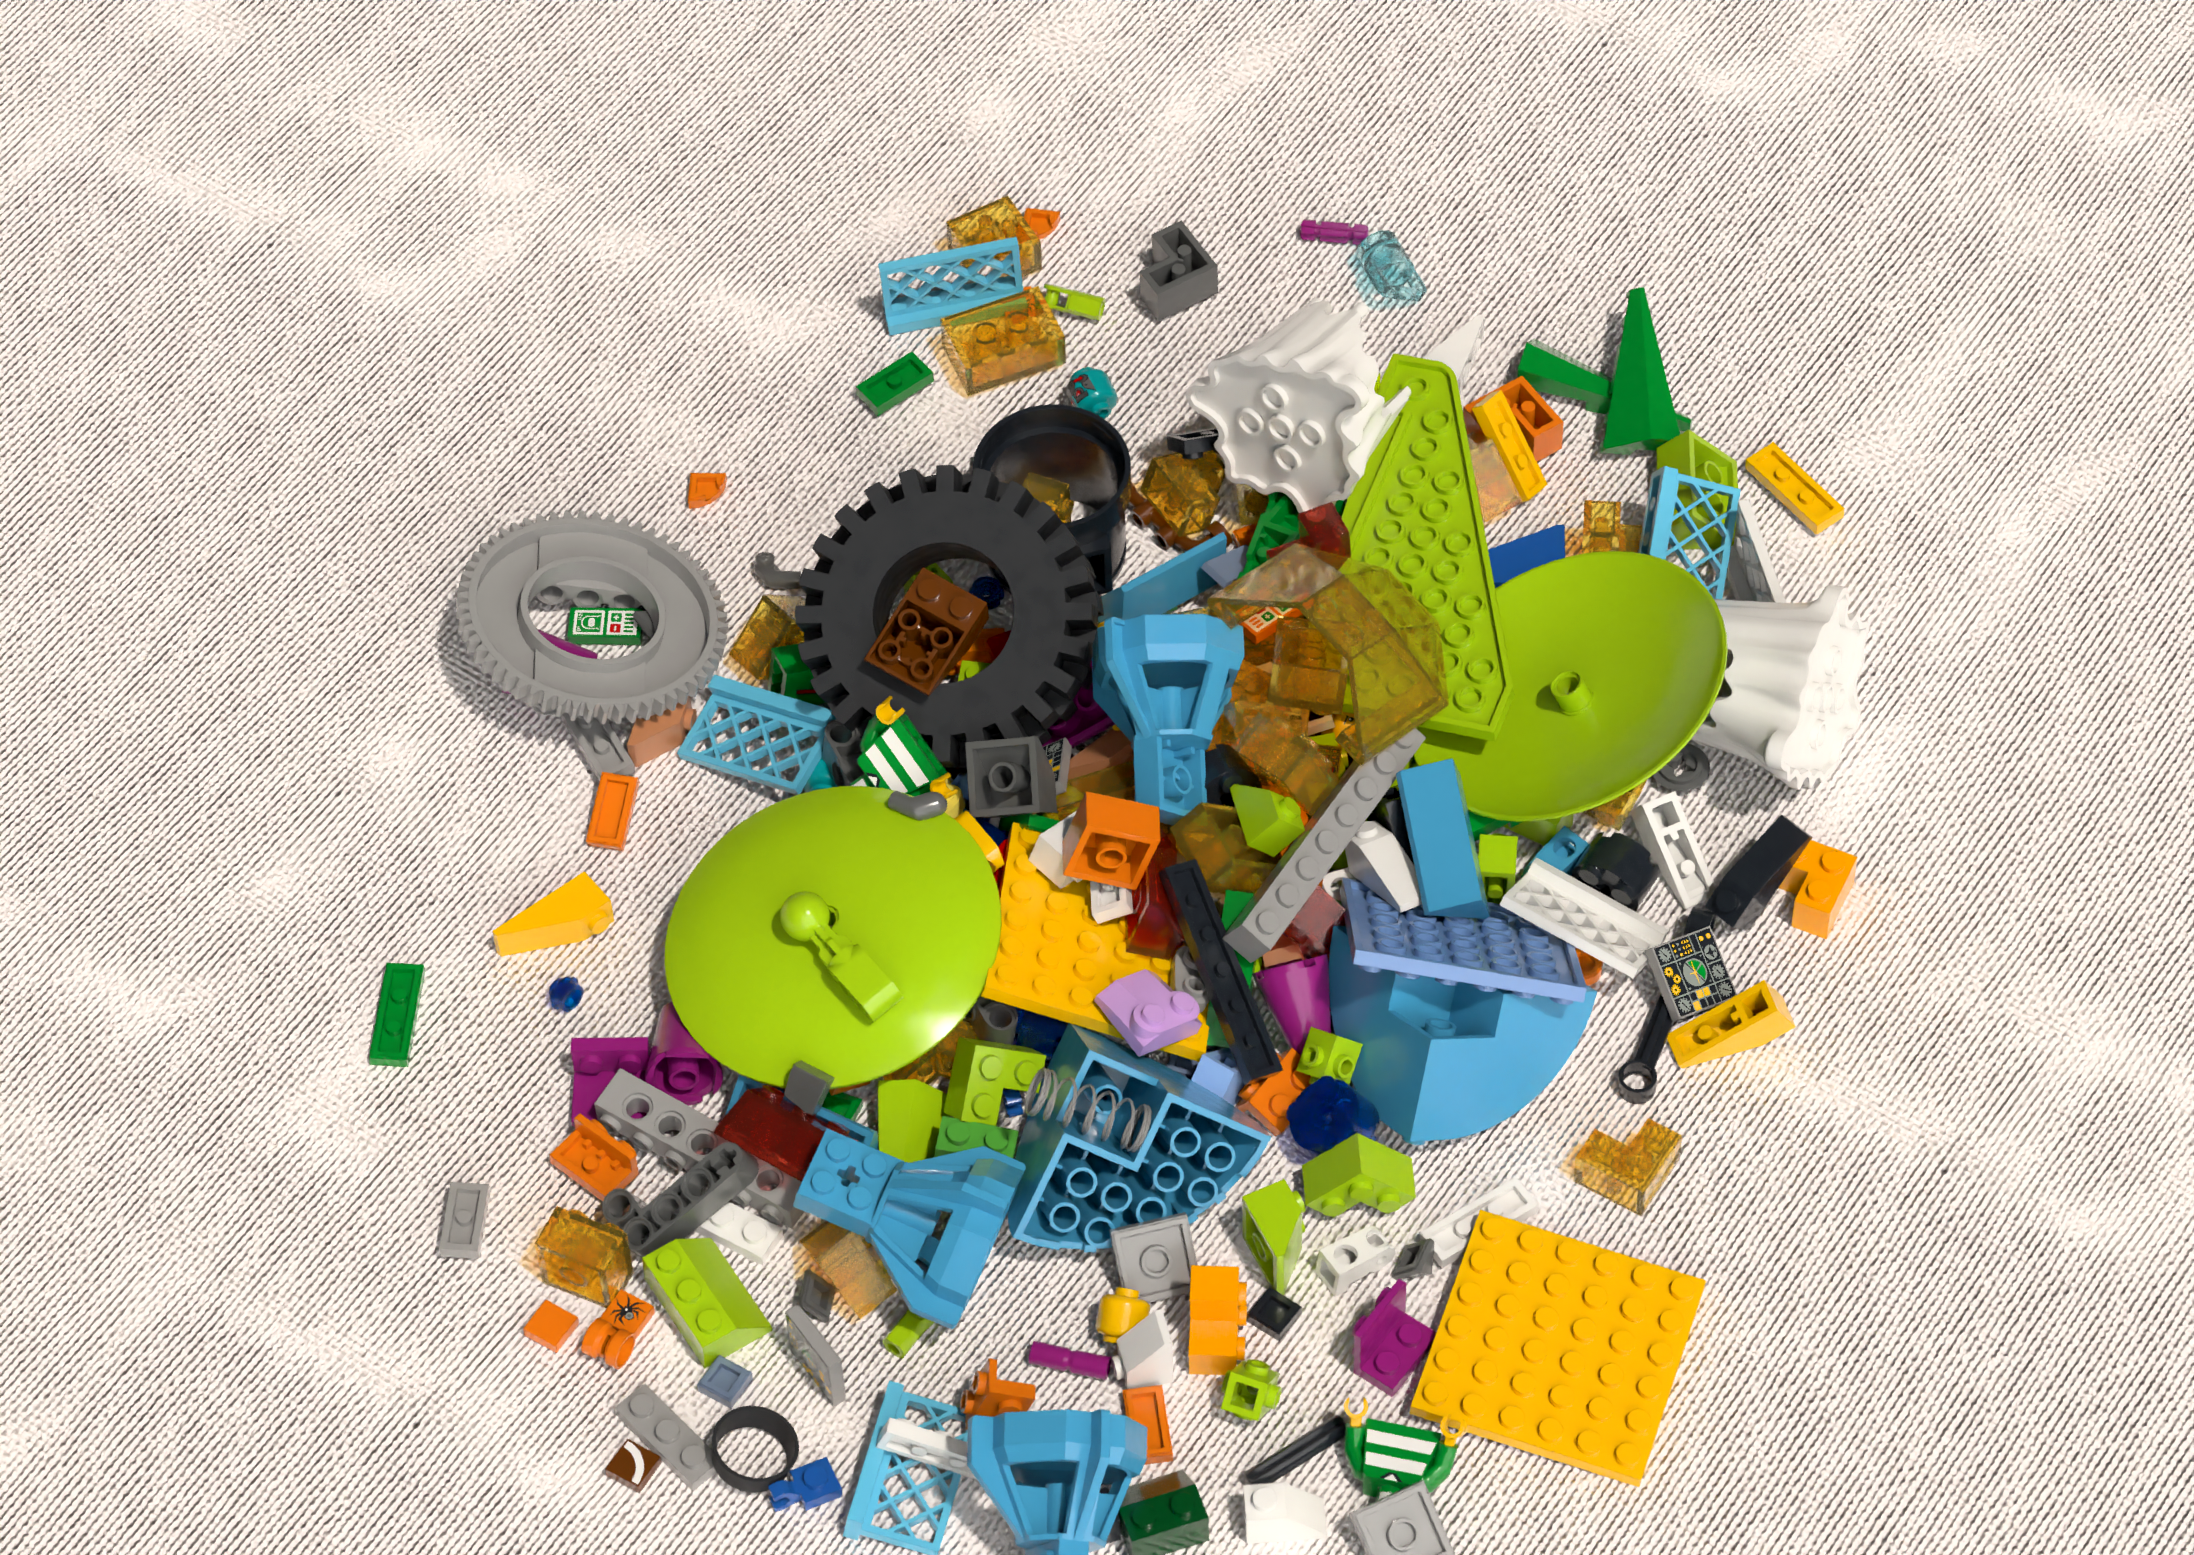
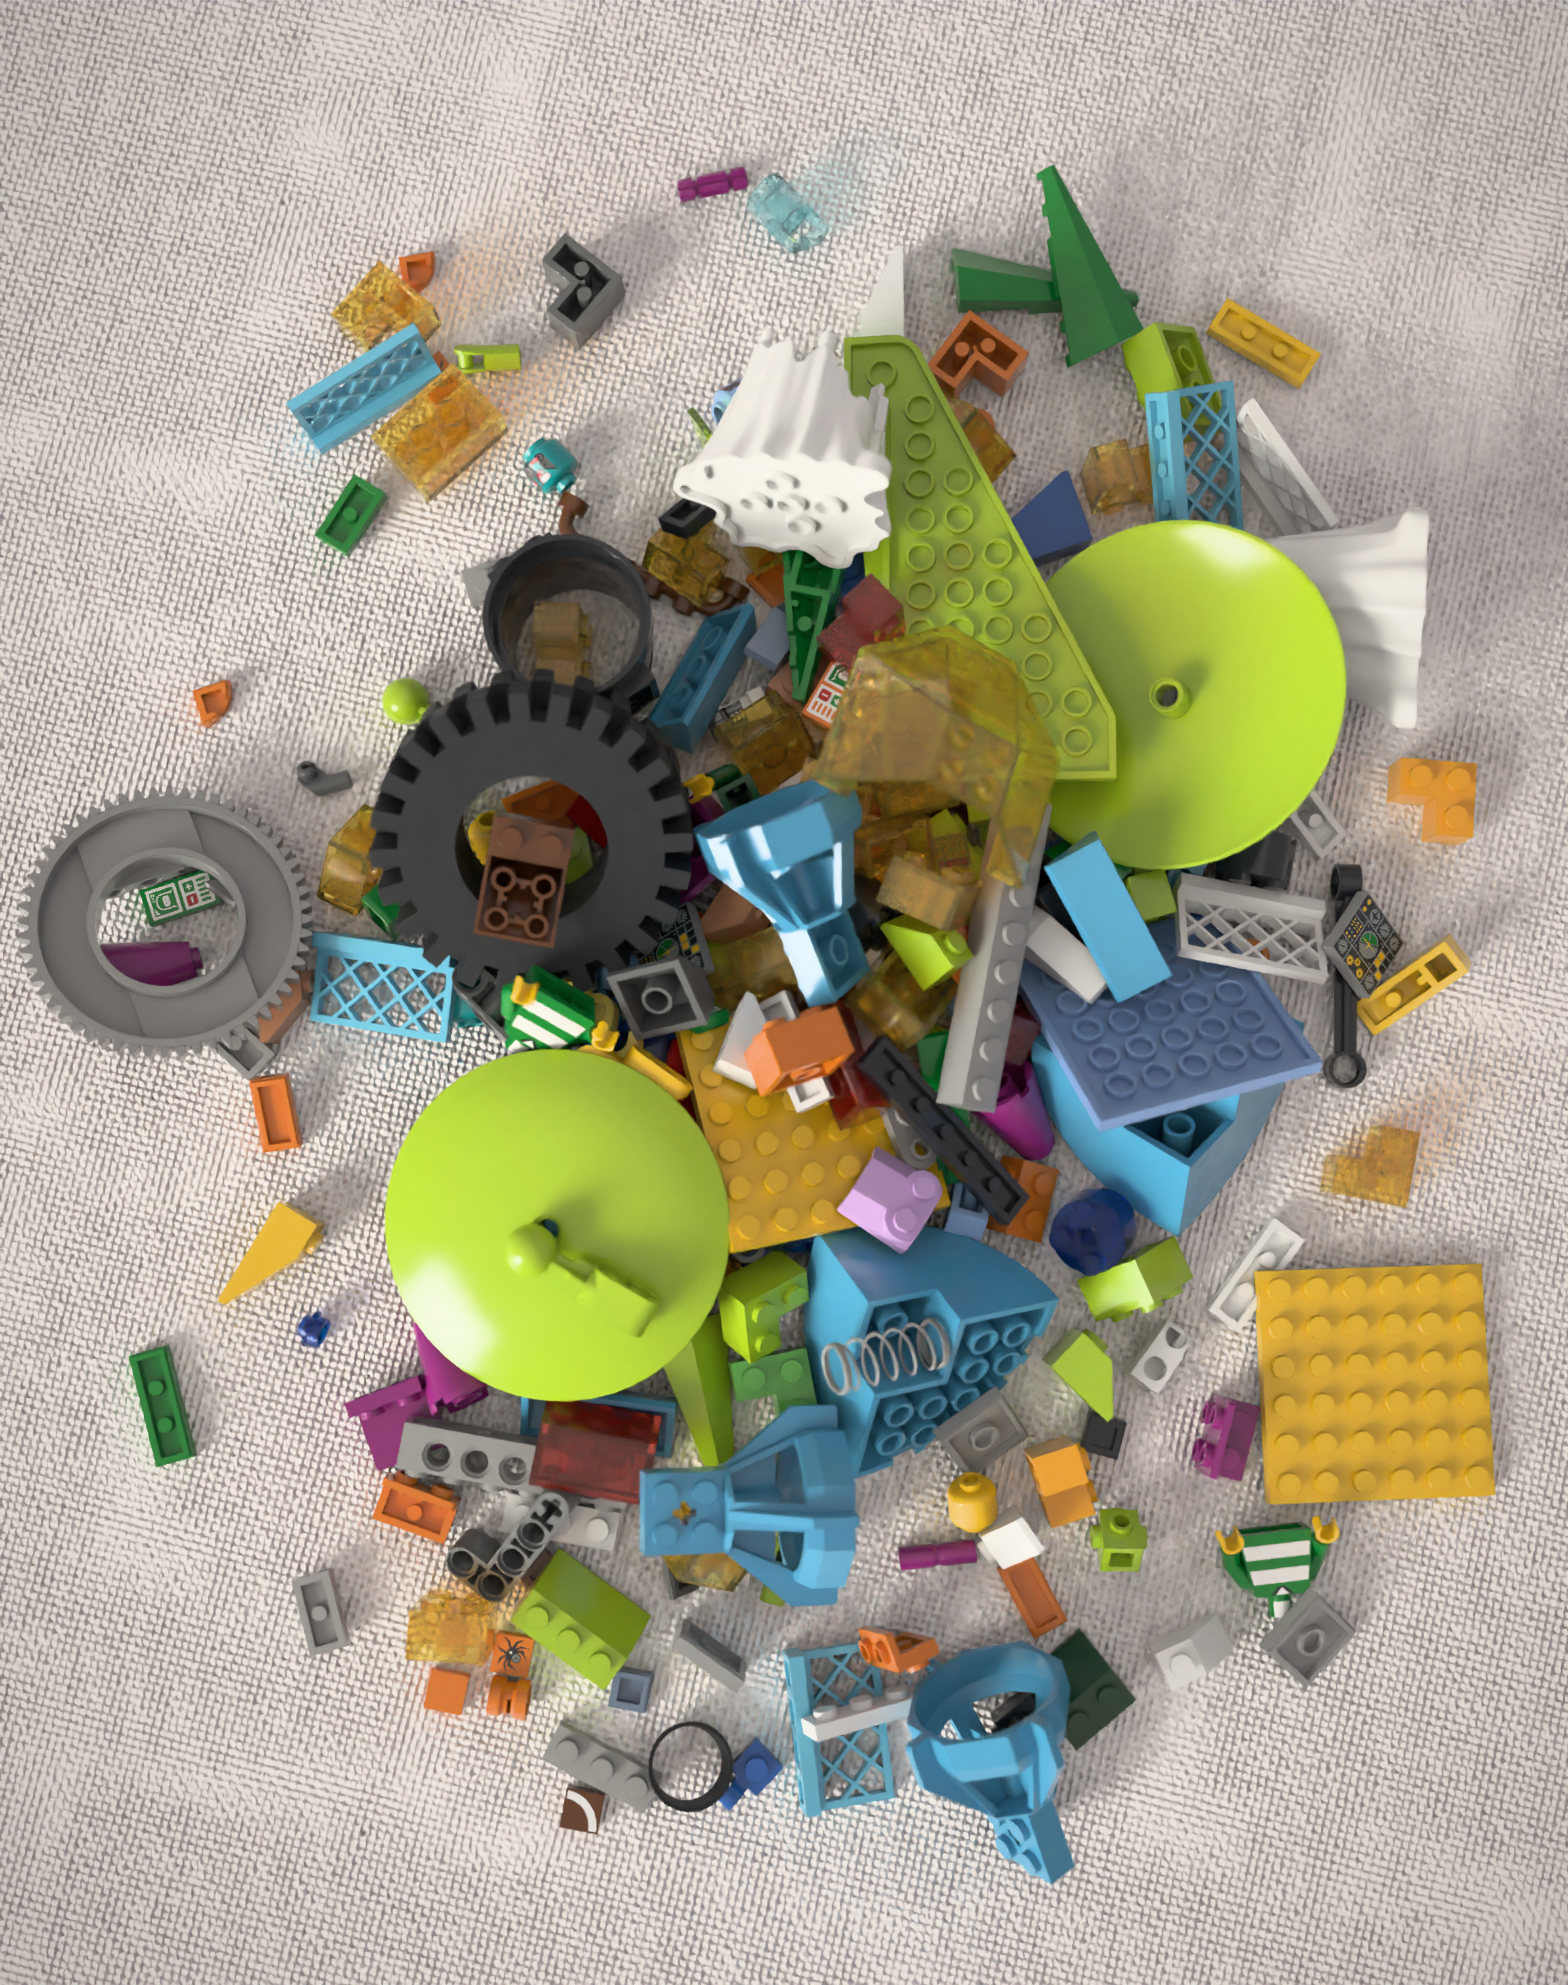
camera: 20 degrees left, 30 degrees up
(808, 1087) = (600, 1402): dark grey slope -> none
(918, 807) = (592, 1072): dark grey arm -> none
(1297, 1452) = (1176, 1577): black axle -> none
(1328, 1056) = (1067, 1167): lime brick -> none
(1415, 1260) = (1210, 1337): dark grey slope -> none
(1500, 424) = (980, 390): yellow plate -> none
(1758, 874) = (1393, 816): black slope -> none

